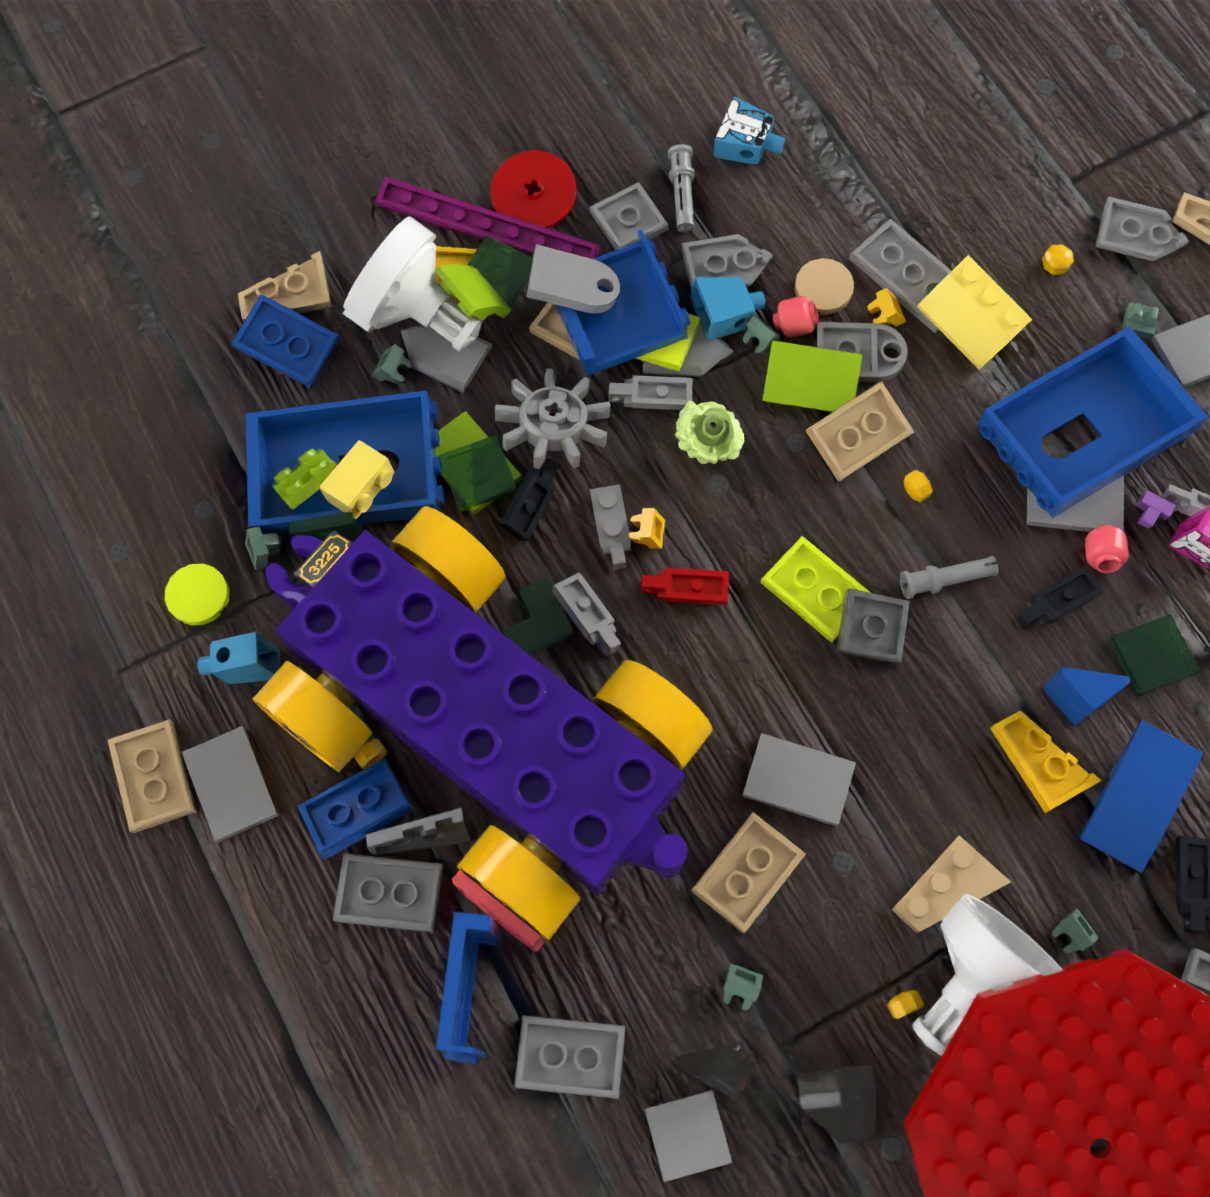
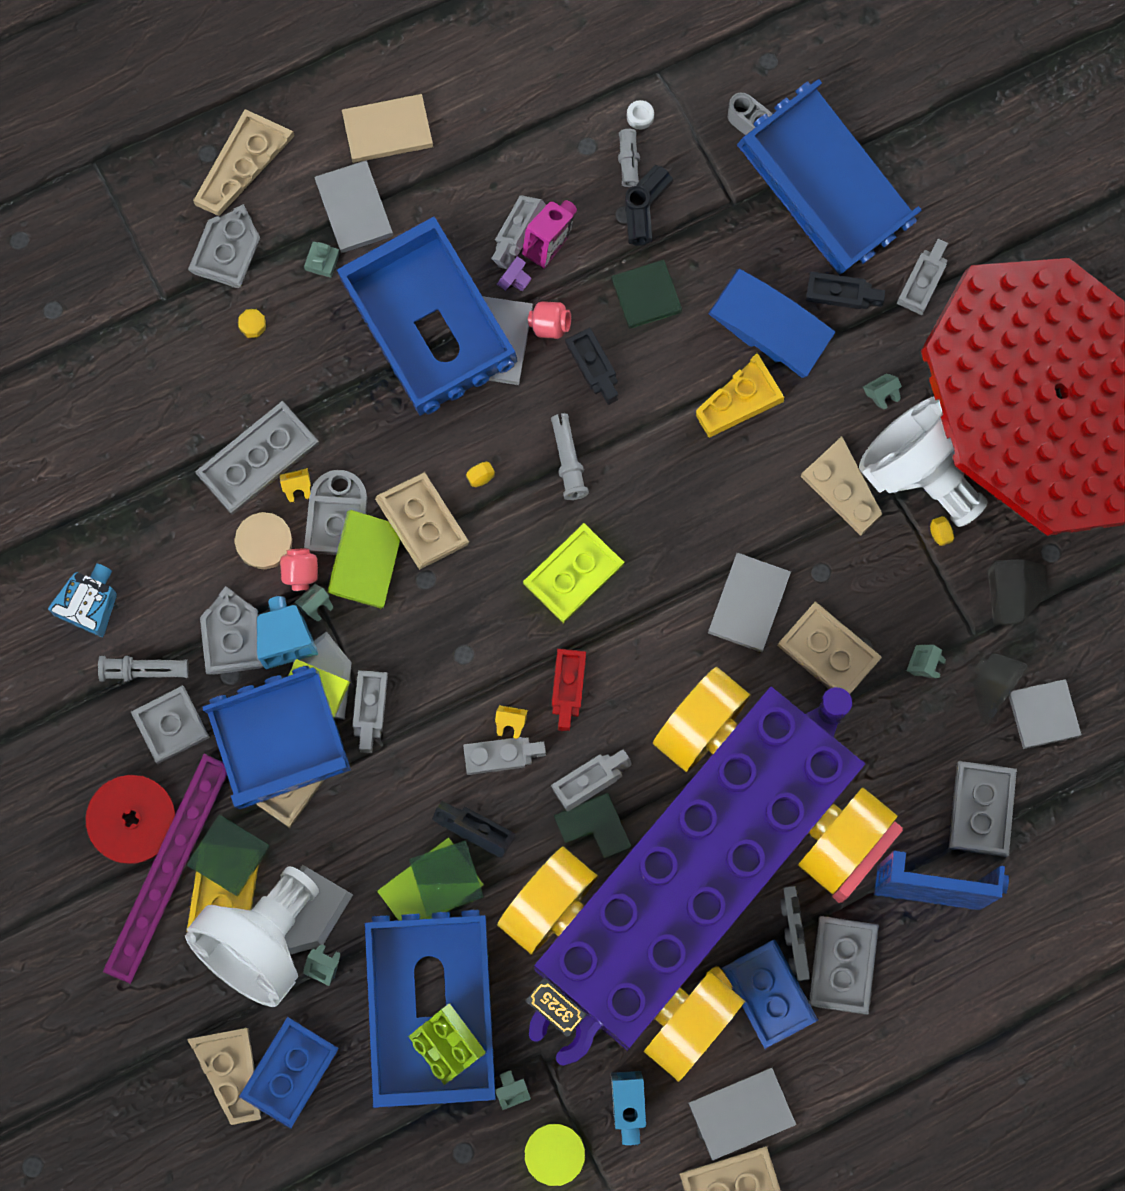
camera: 90 degrees left, 5 degrees up
(321, 527) = (506, 1021): clear green tile -> none
(357, 479) = (461, 987): light yellow brick -> none
(472, 290) = (262, 874): lime slope -> none
(553, 419) = (397, 819): light grey gear -> none
(571, 281) = (256, 779): light grey tile -> none
(706, 441) = (421, 656): yellowish green hair -> none
(873, 626) = (613, 526): flat silver tile -> none
(974, 312) = (309, 405): light yellow slope -> none
(1082, 691) = (689, 356): blue slope -> none

